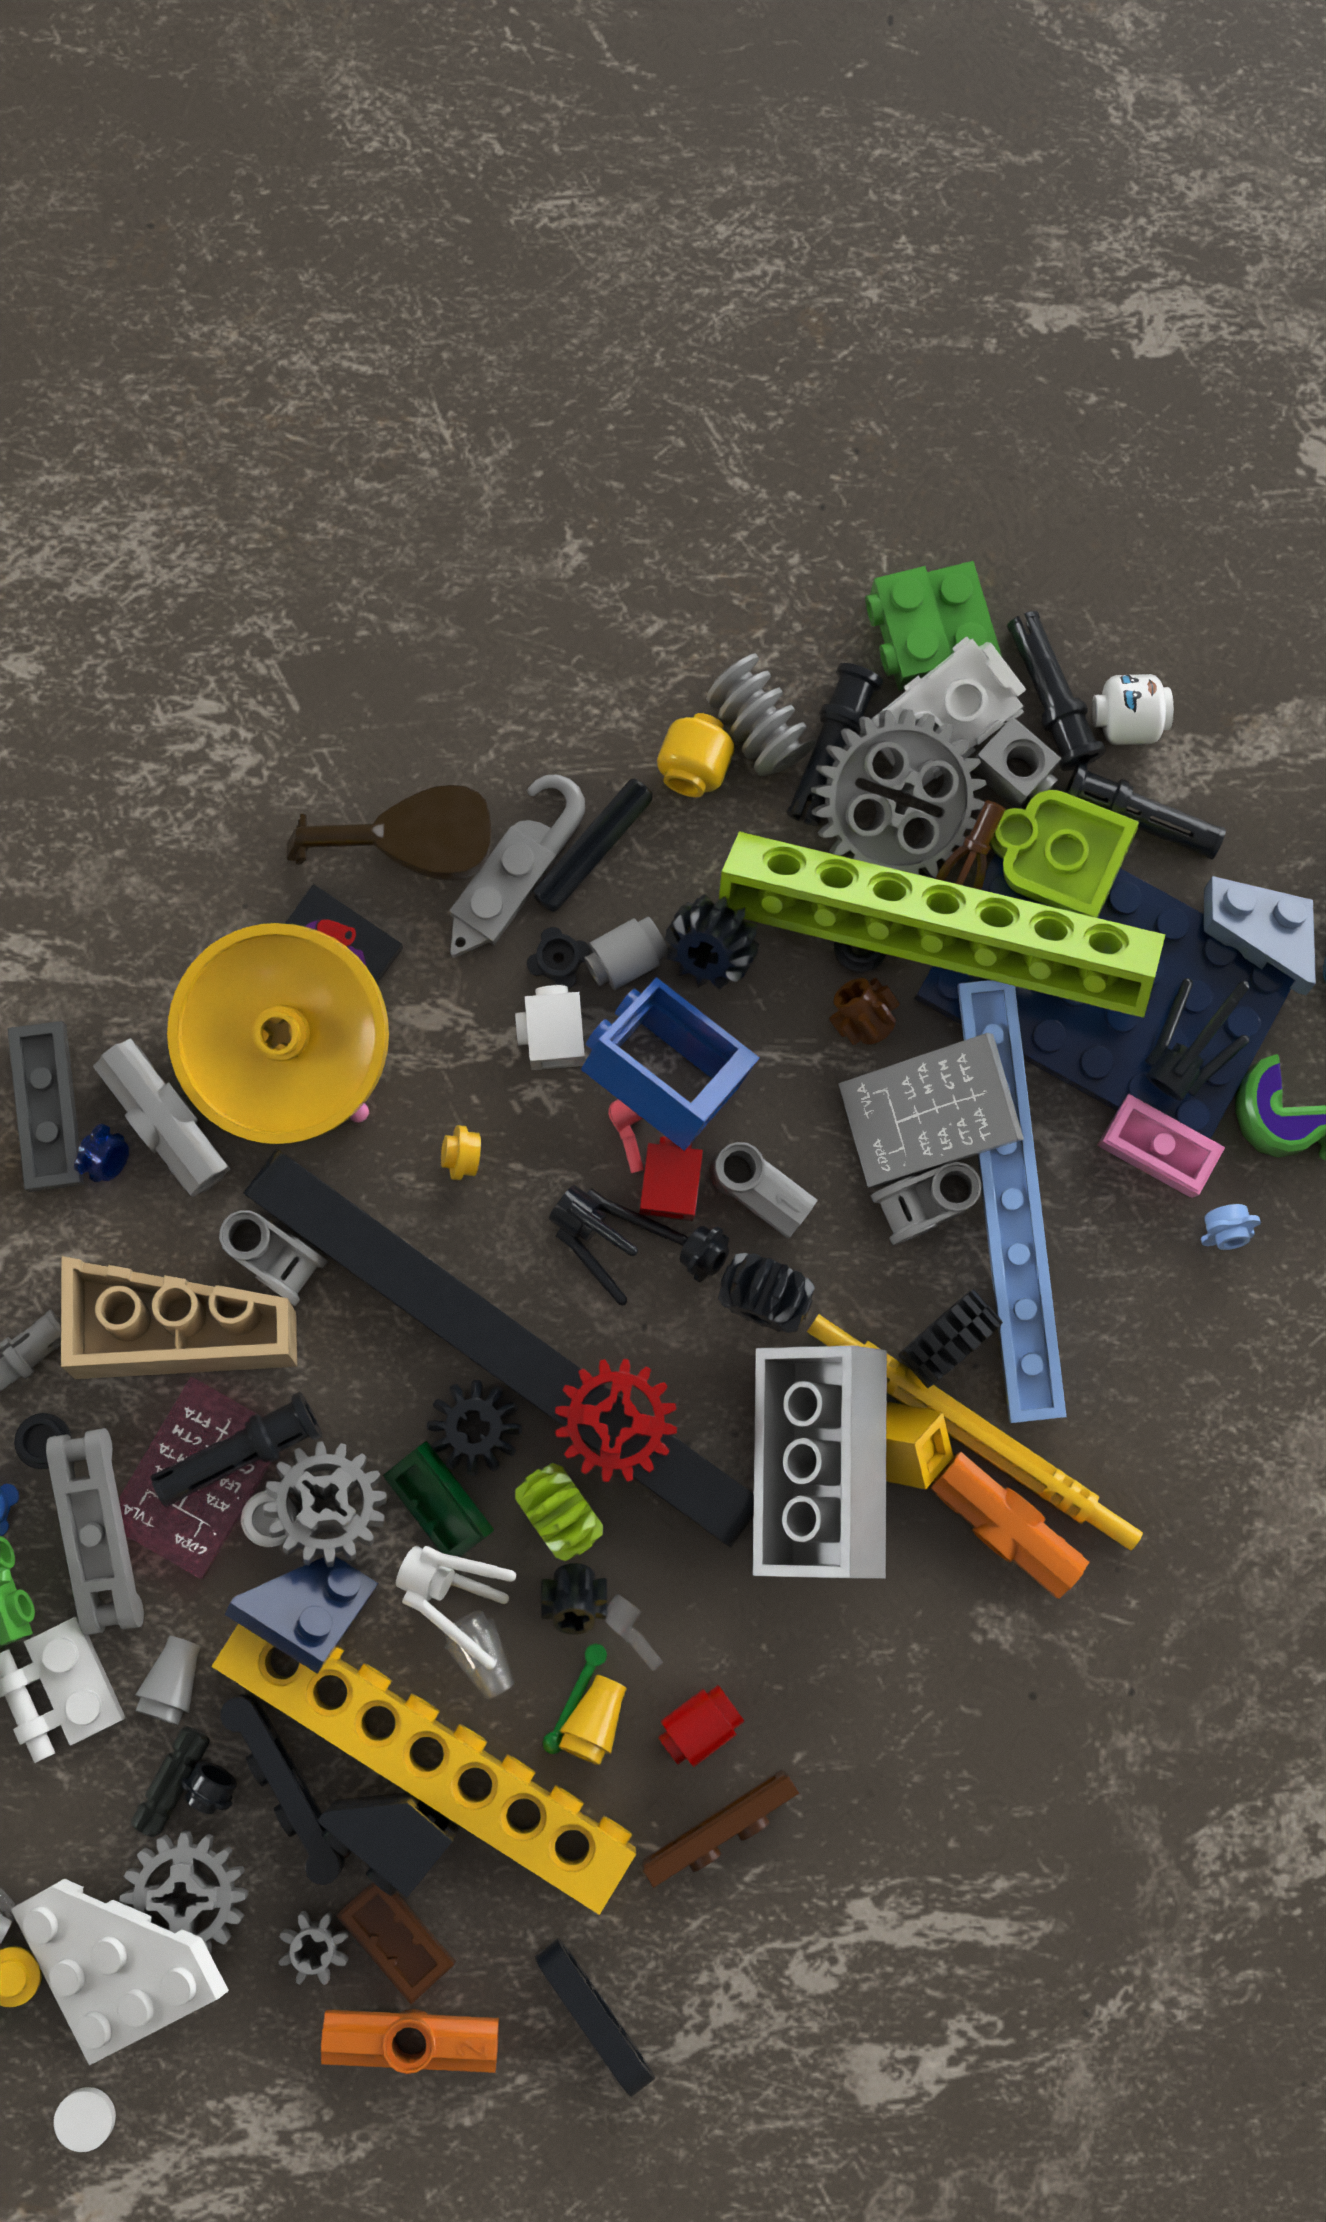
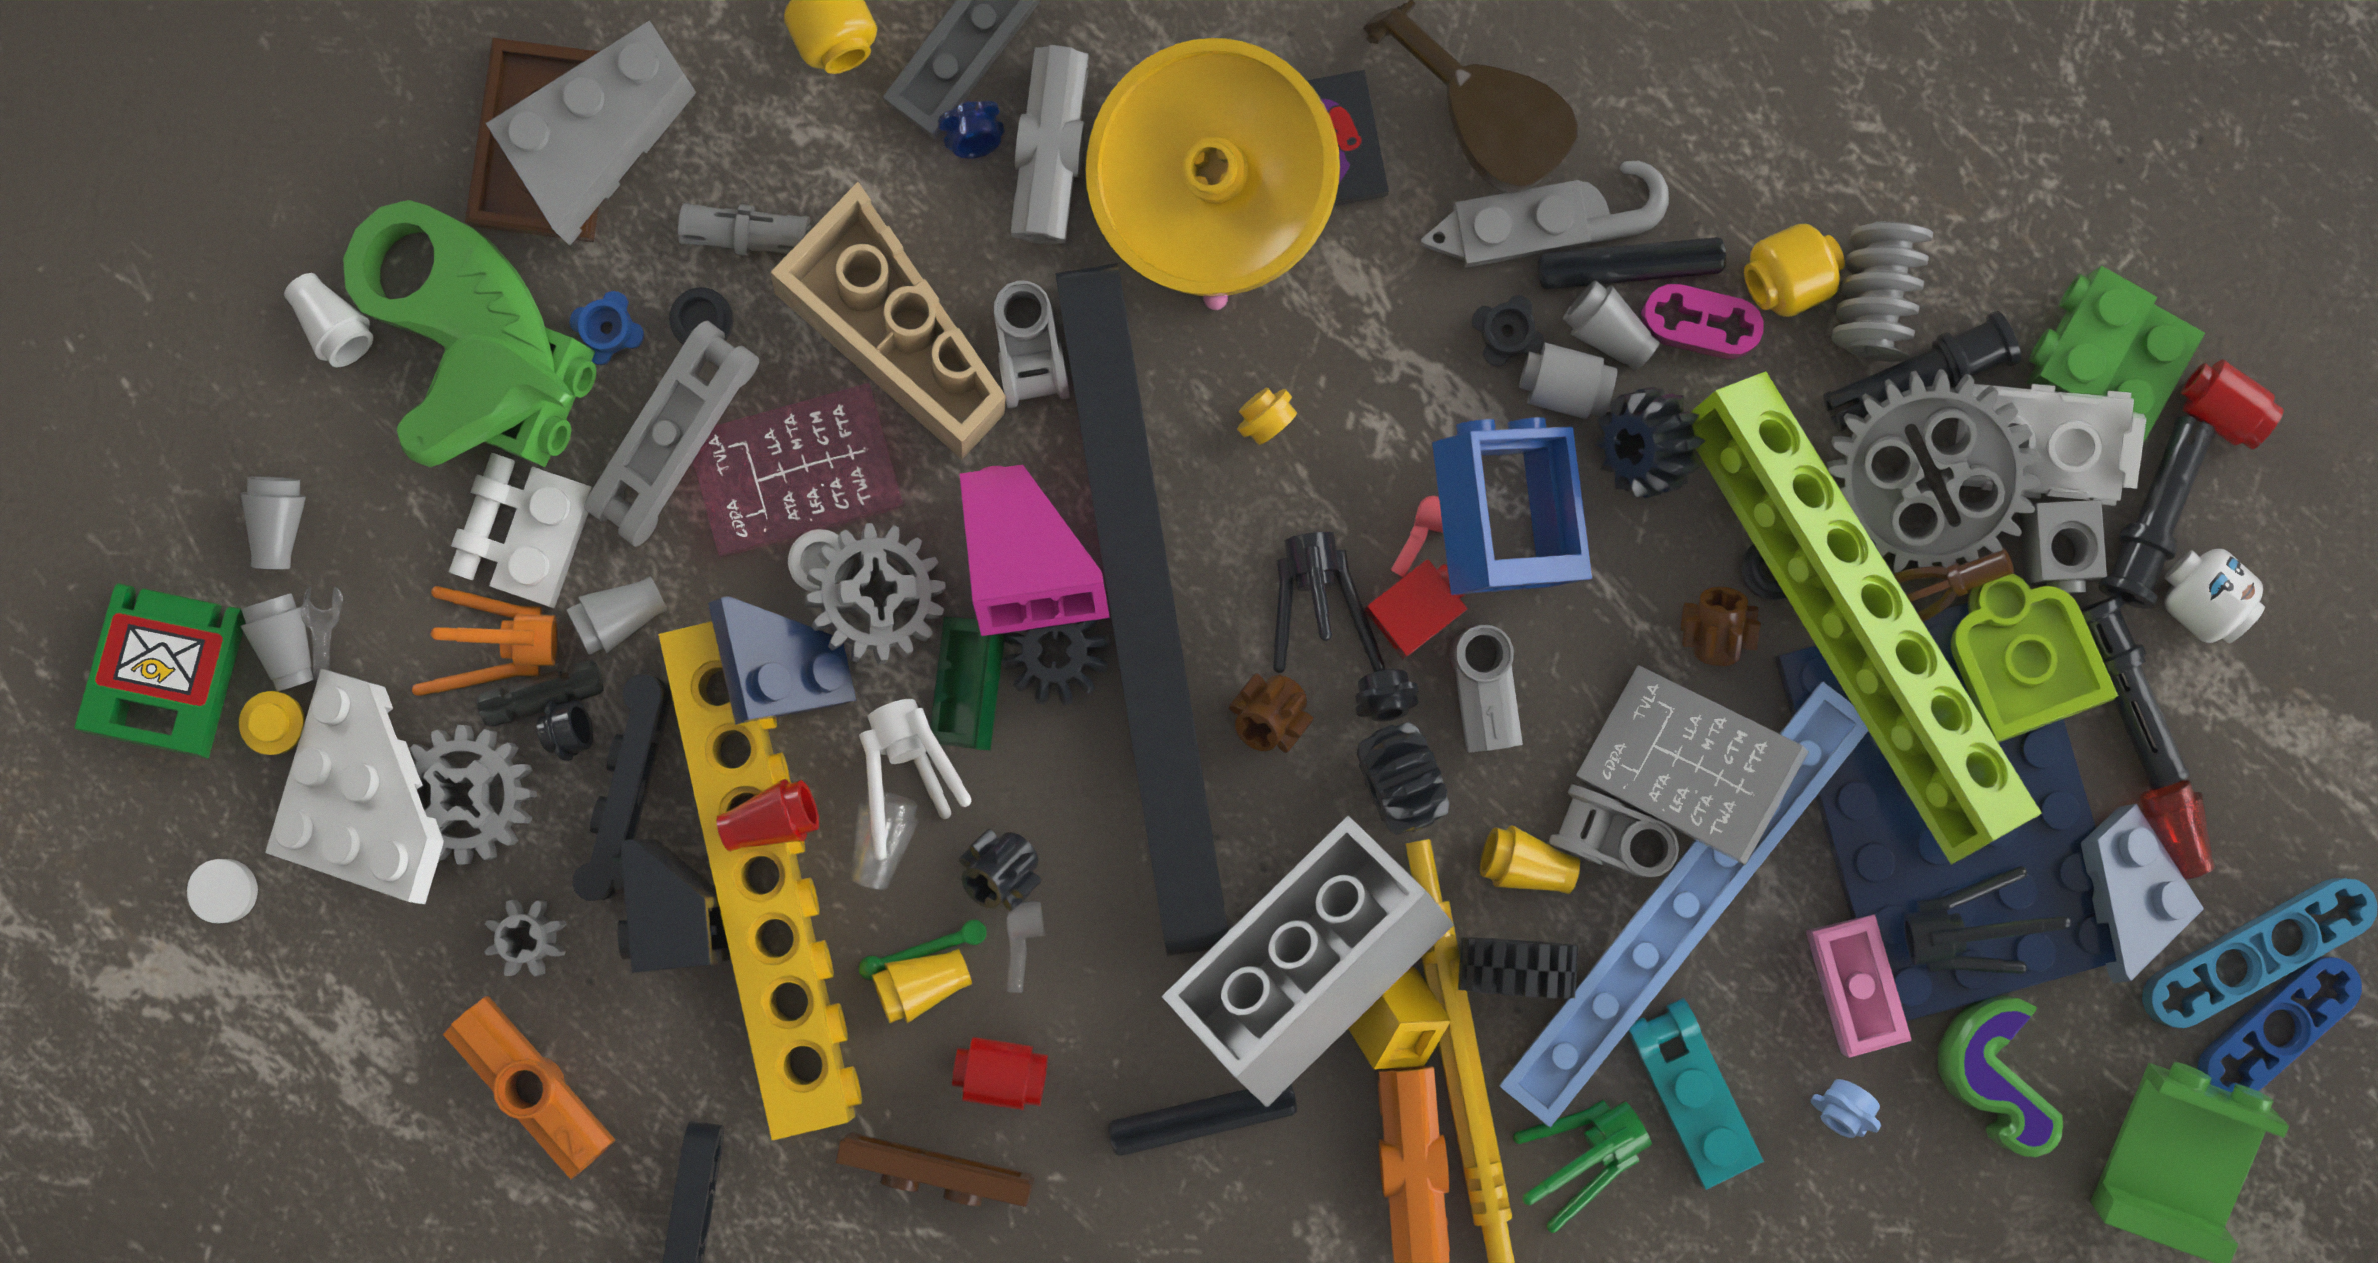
camera: 55 degrees right, 5 degrees up
(128, 1755) = (527, 640): none -> orange plant
(259, 1440) = (872, 489): black pin -> none
(396, 1940) = (594, 998): reddish brown plate -> none
(397, 1386) = (1024, 556): none -> dark pink slope
(398, 1709) = (771, 817): none -> red cone
(552, 1028) = (1443, 384): white brick -> none
(558, 1512) = (1055, 788): lime gear -> none
(617, 895) = (1610, 325): none -> light grey cone
(642, 1424) = (1156, 735): red gear -> none
(645, 1333) = (1271, 713): none -> reddish brown gear
(663, 828) = (1705, 306): none -> dark pink beam
(849, 1632) = (1196, 1120): none -> black axle
(890, 1270) = (1525, 862): none -> yellow cone
(1030, 587) = (2231, 404): none -> red brick
(1112, 1387) = (1613, 1141): none -> green plant
(1132, 1310) = (1695, 1096): none -> teal plate
(1250, 863) = (2181, 826): none -> clear red cone

